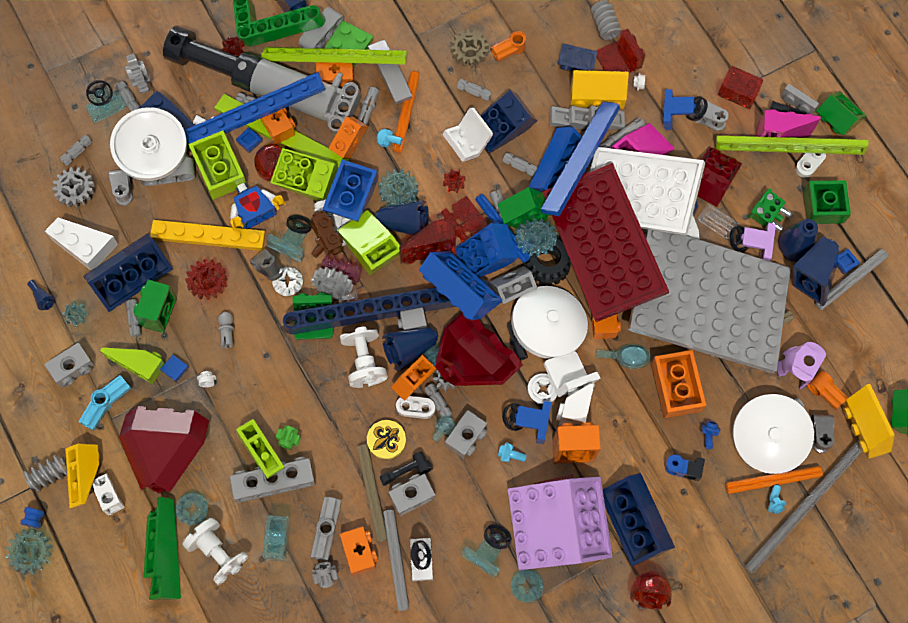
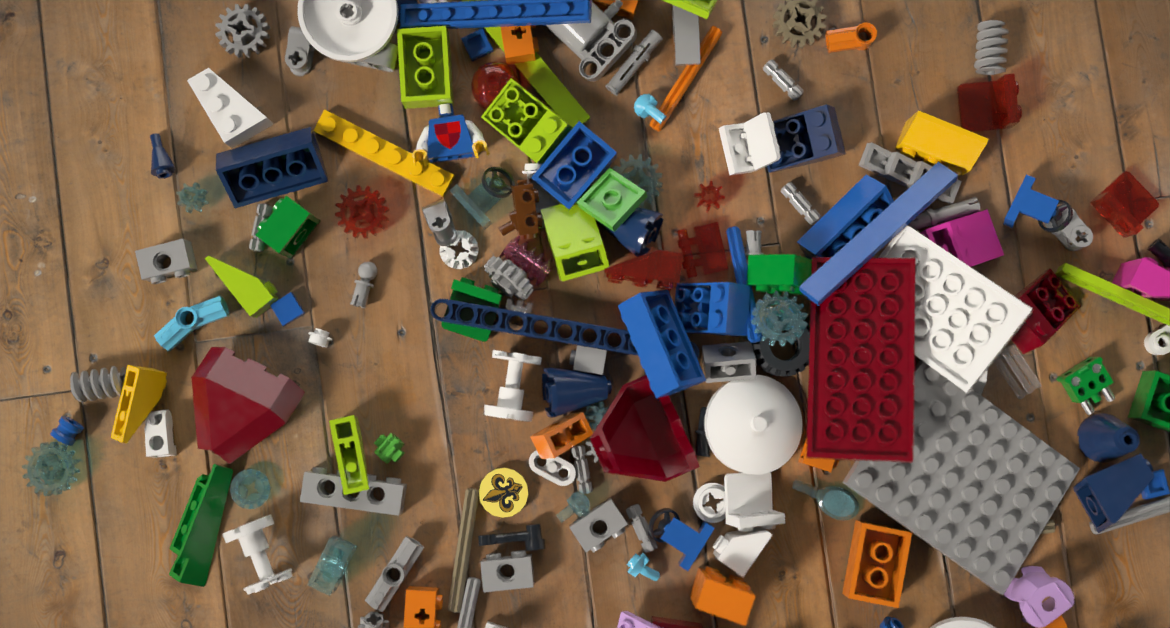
camera: 25 degrees right, 15 degrees up
(348, 137) = (599, 91): orange brick -> none
(386, 202) = (612, 199): none -> bright green plate
(498, 426) = (641, 528): none -> light grey axle
(577, 58) = (931, 88): dark blue bracket -> none
(639, 81) = (998, 148): white plate -> none
(755, 239) = (1052, 416): lavender piece -> none

